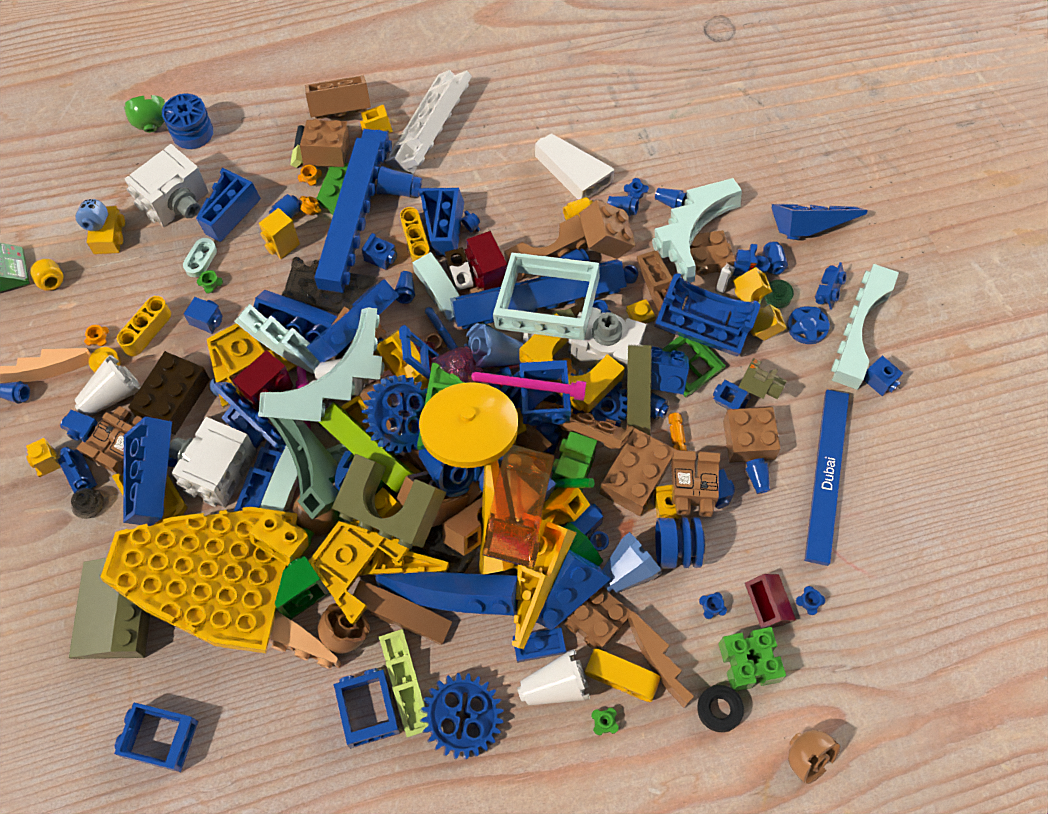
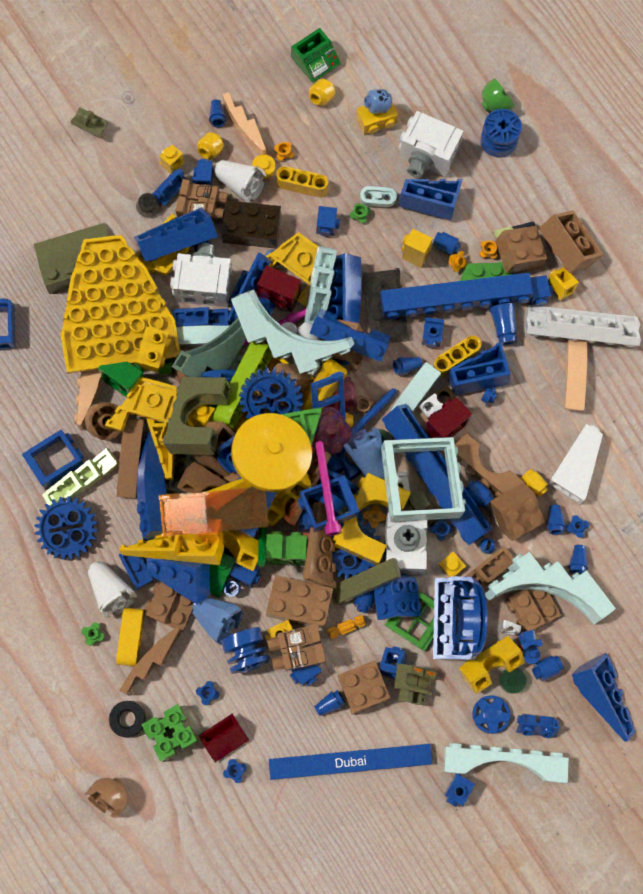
camera: 70 degrees right, 10 degrees up
(48, 409) = (210, 146): none -> yellow head
(480, 139) = (575, 375): none -> light nougat slope

